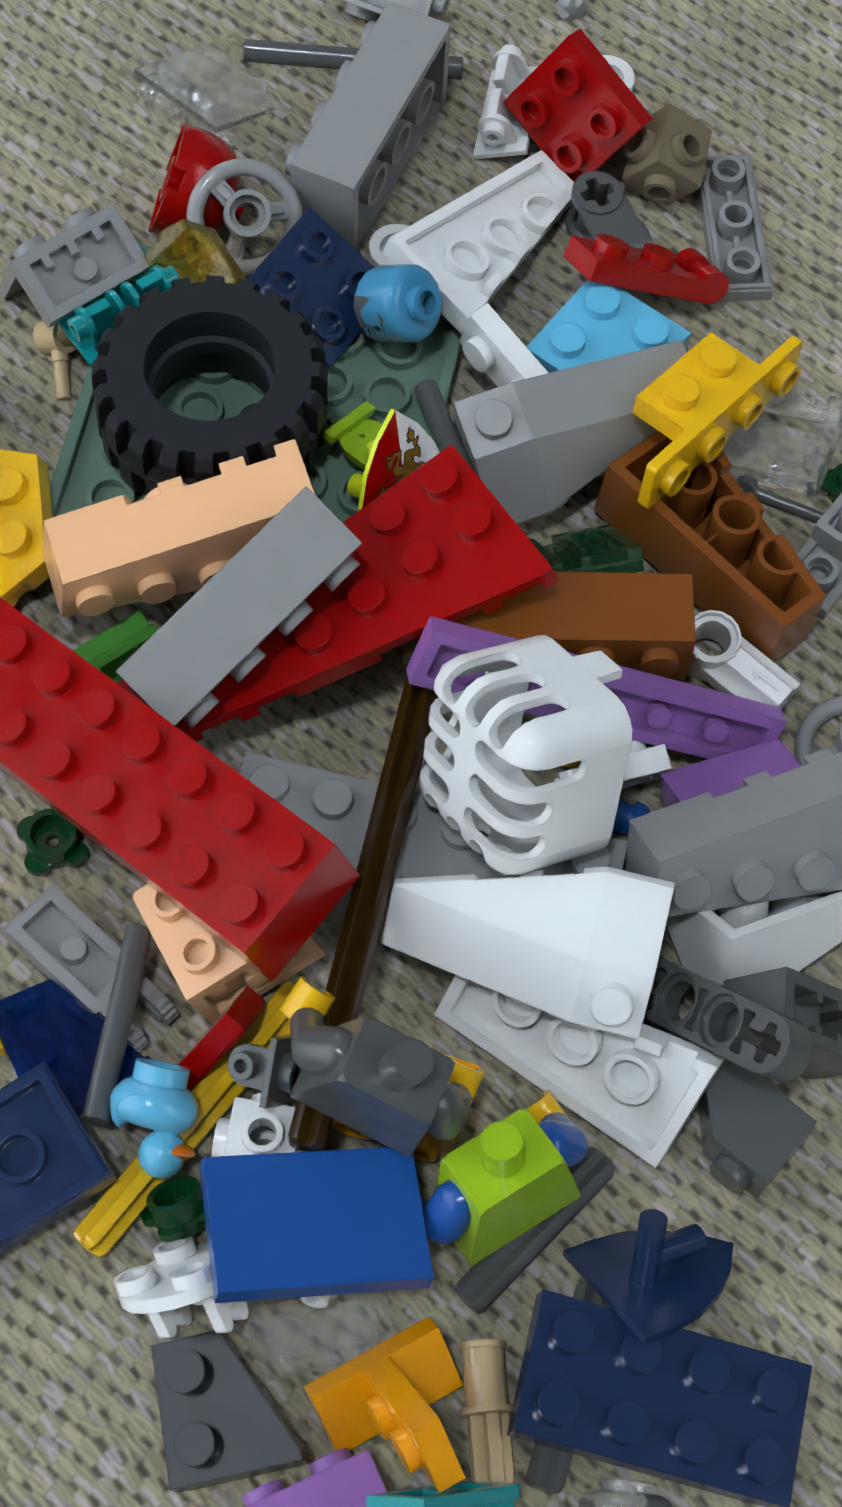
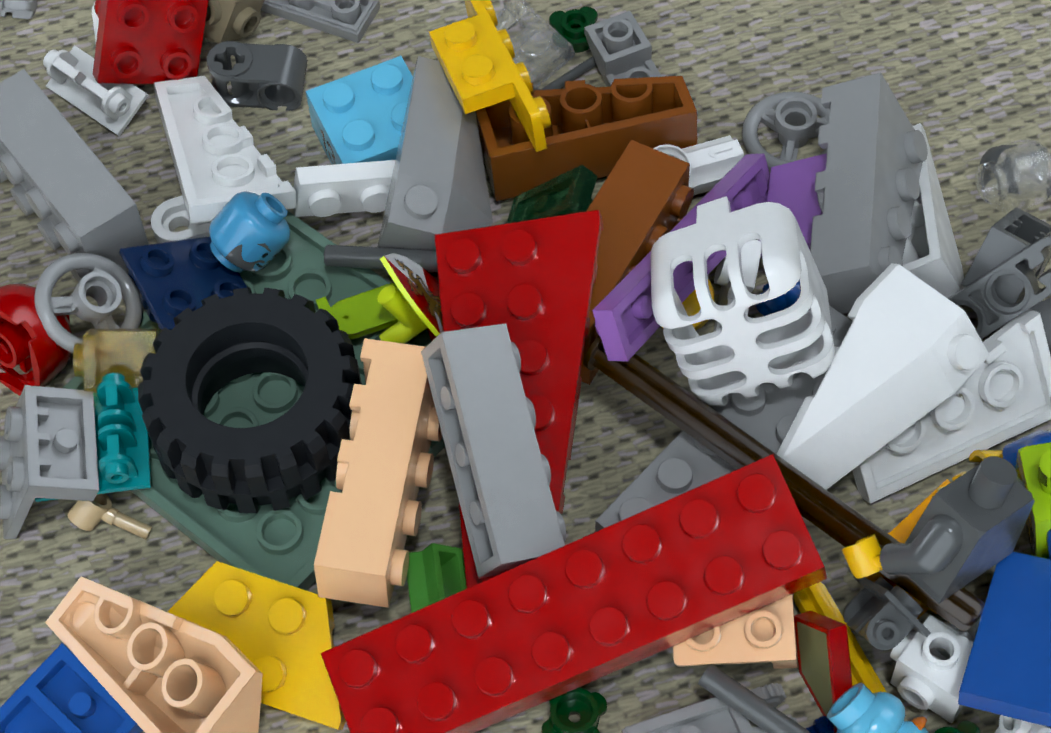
camera: 55 degrees left, 5 degrees down
(648, 269) = (320, 59): red plate -> none

